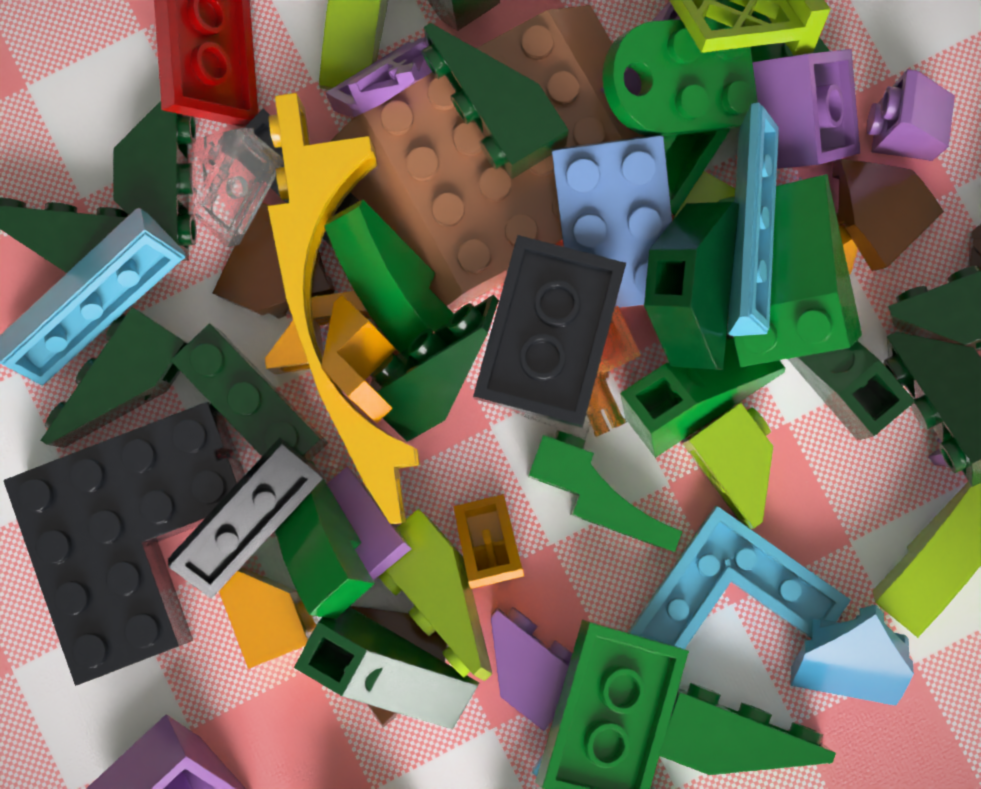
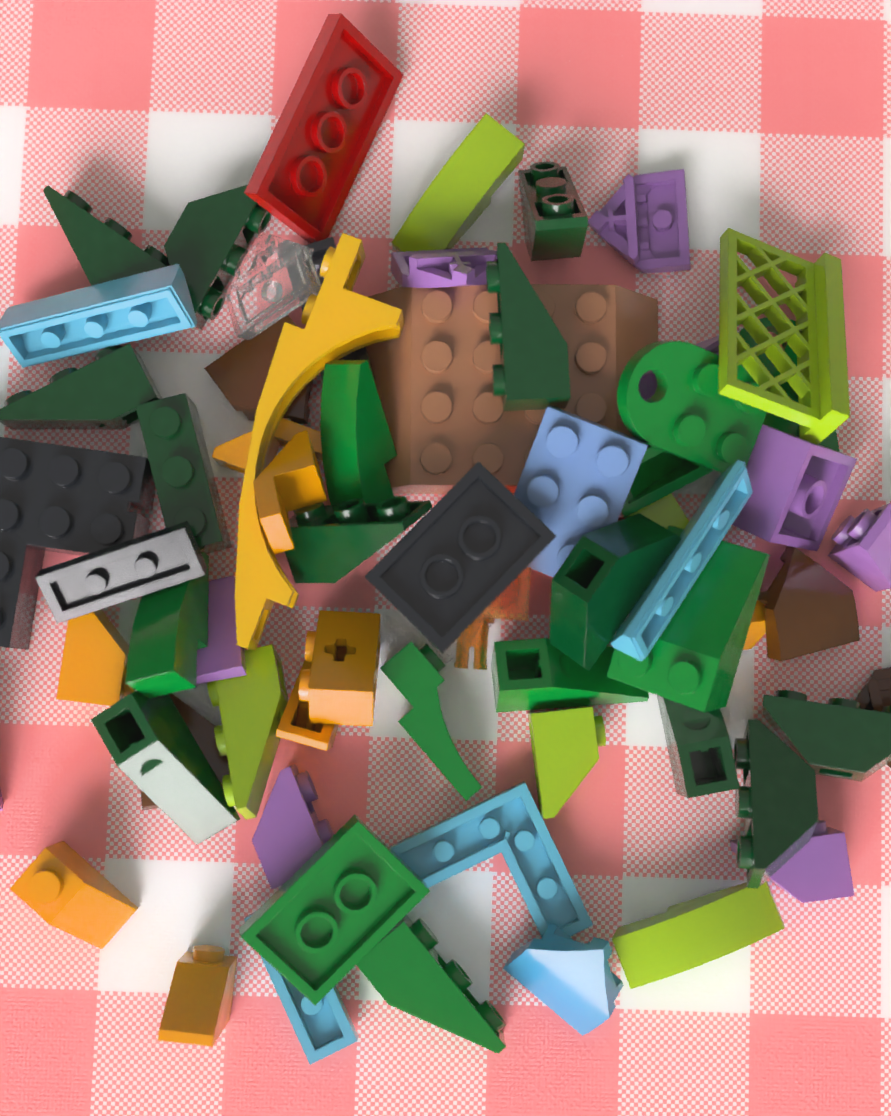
camera: 20 degrees right, 0 degrees up
(497, 492) = (342, 668): none -> light orange brick

